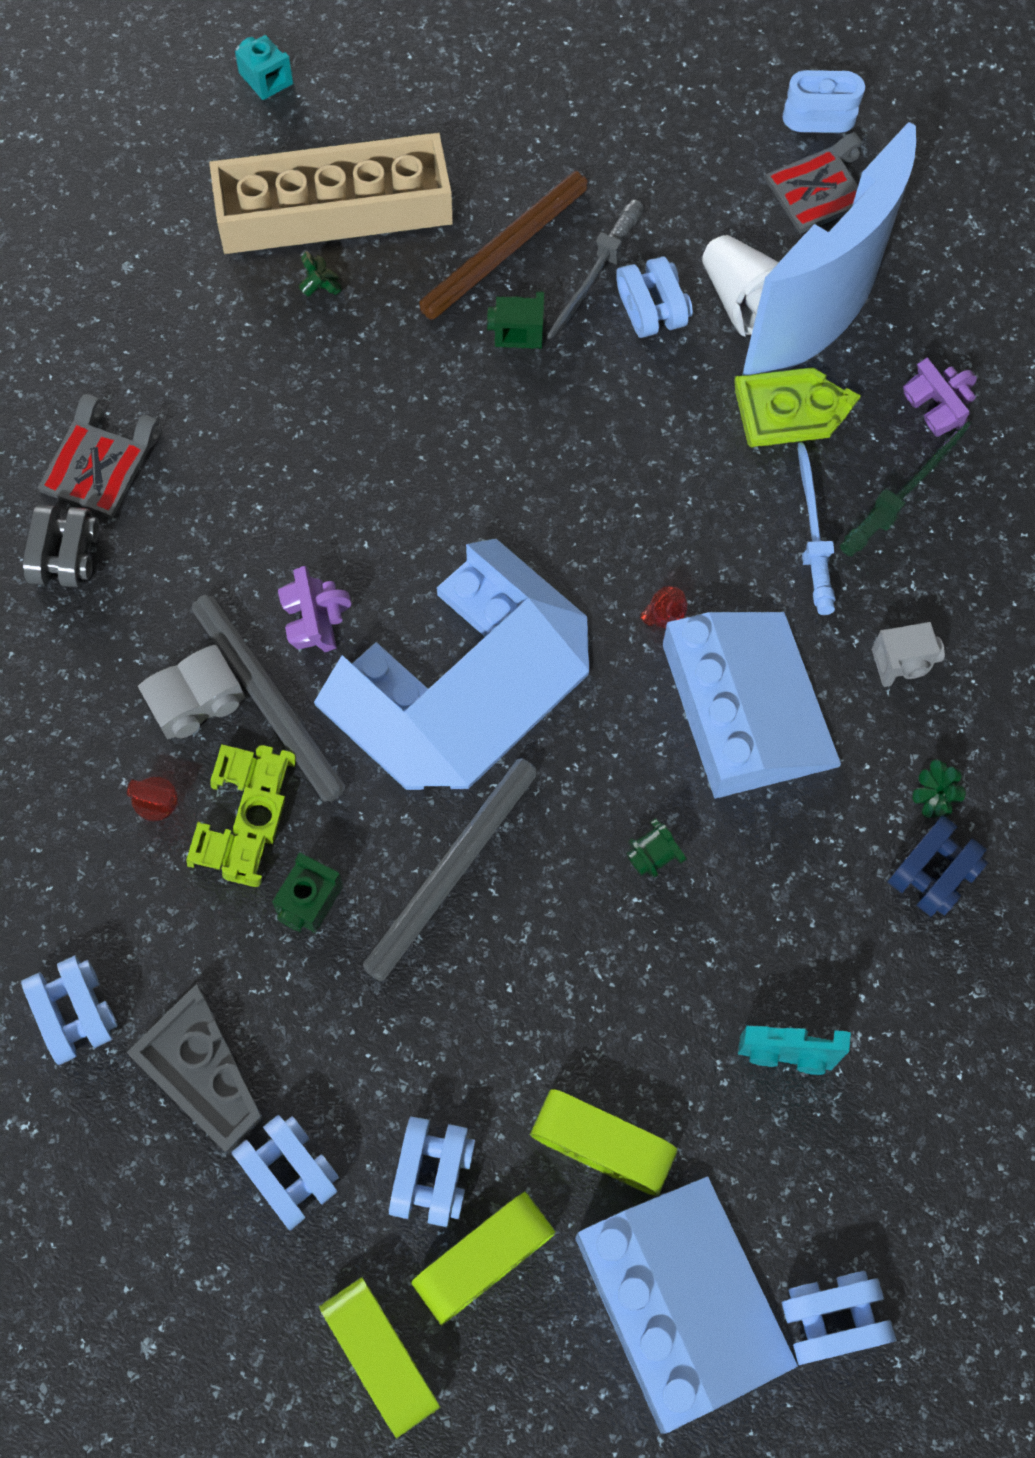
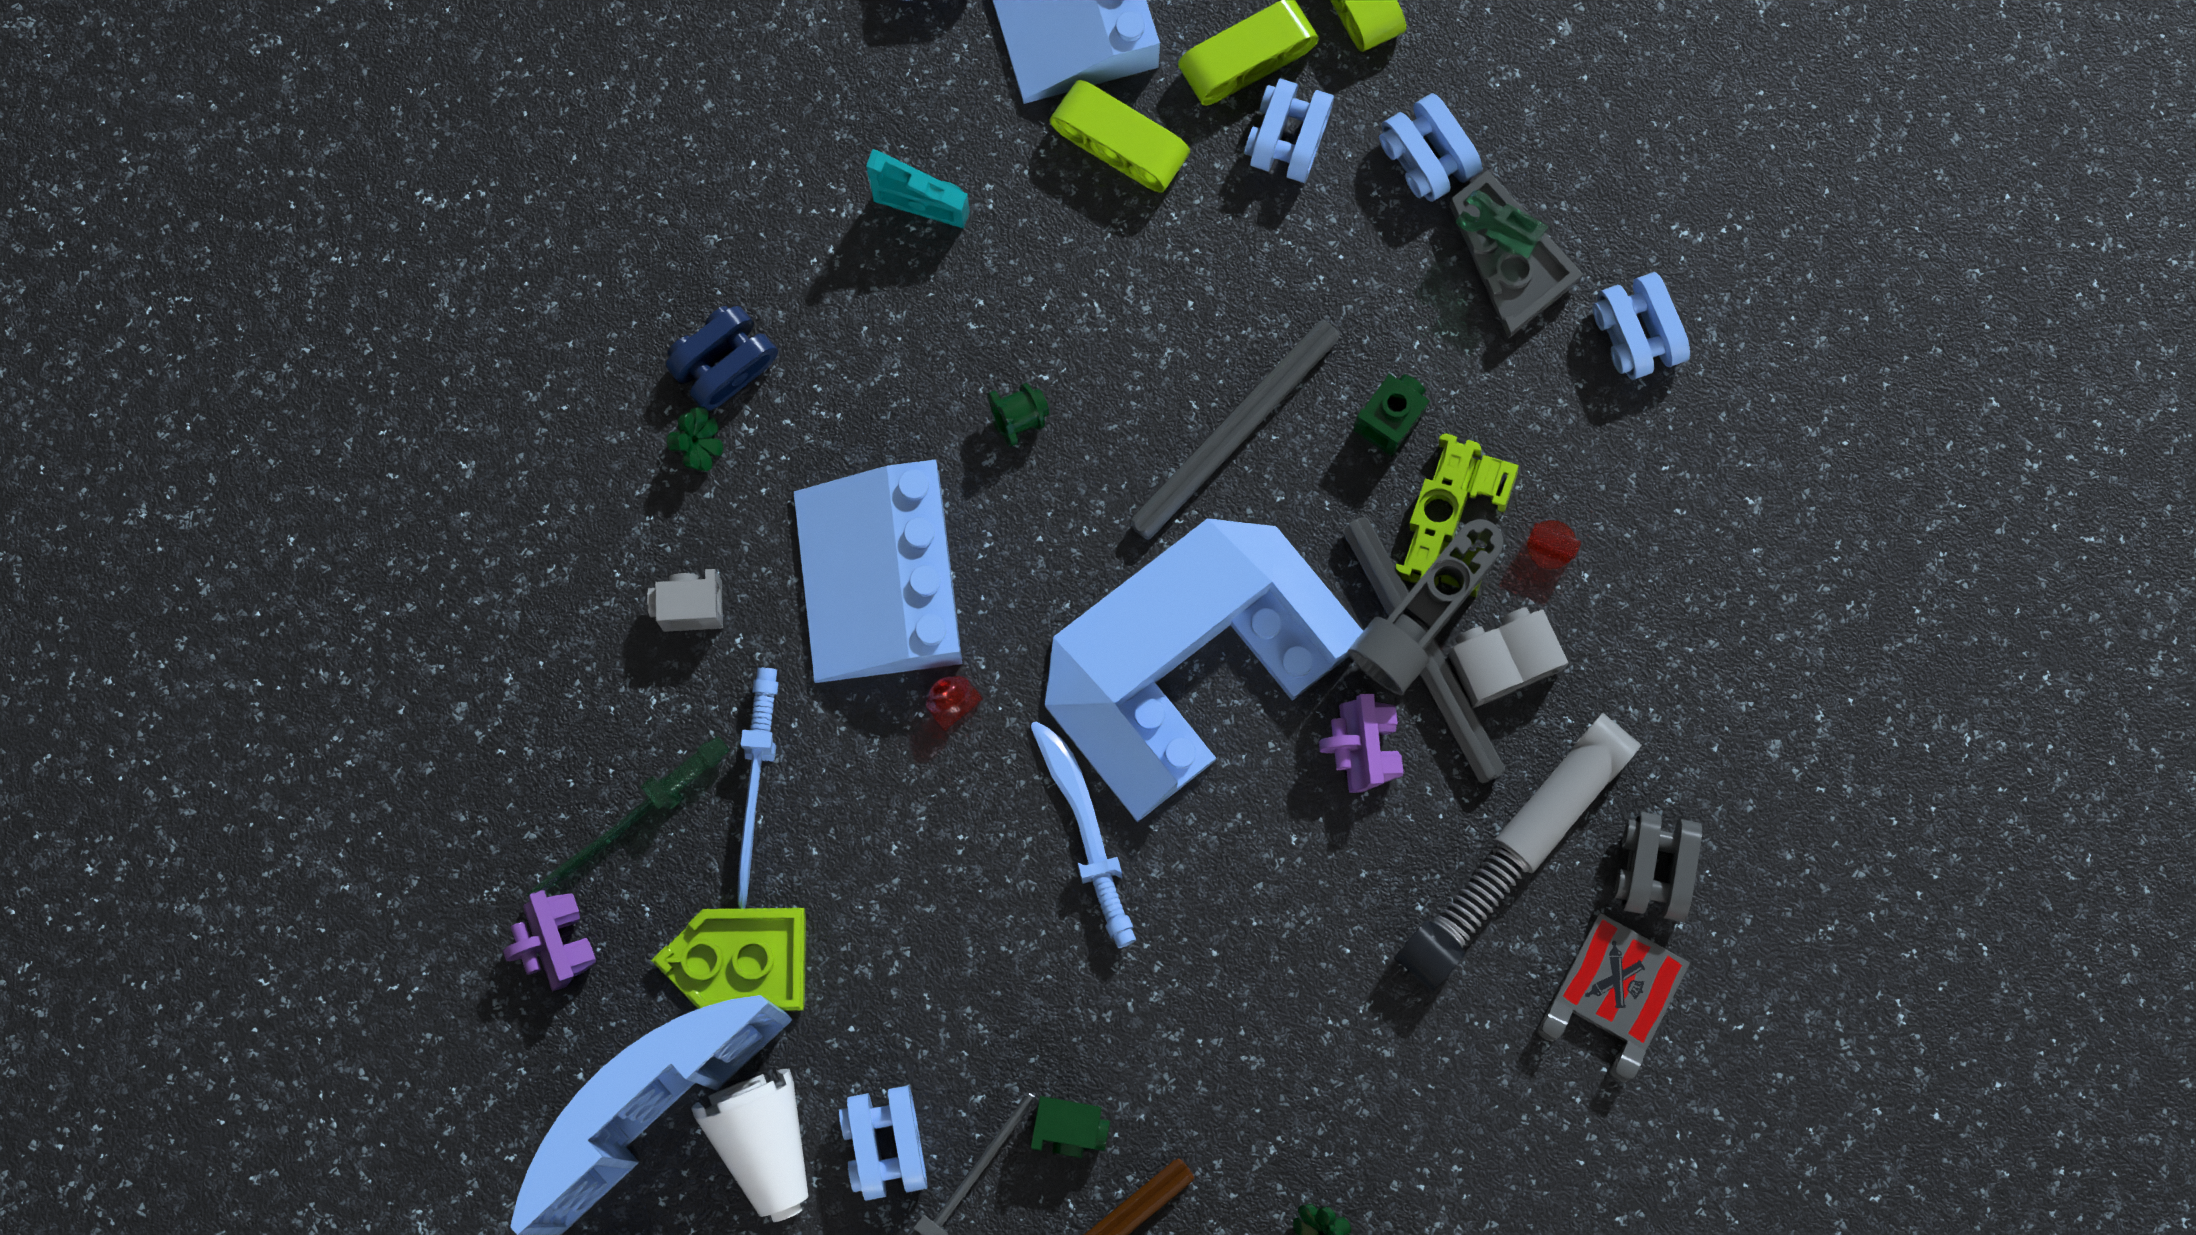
camera: 170 degrees left, 10 degrees up
(113, 622) = (1521, 847): none -> piece
(199, 1080) = (1509, 226): none -> clear green plate
(290, 674) = (1394, 648): none -> dark grey beam
(522, 498) = (1100, 870): none -> light blue sword

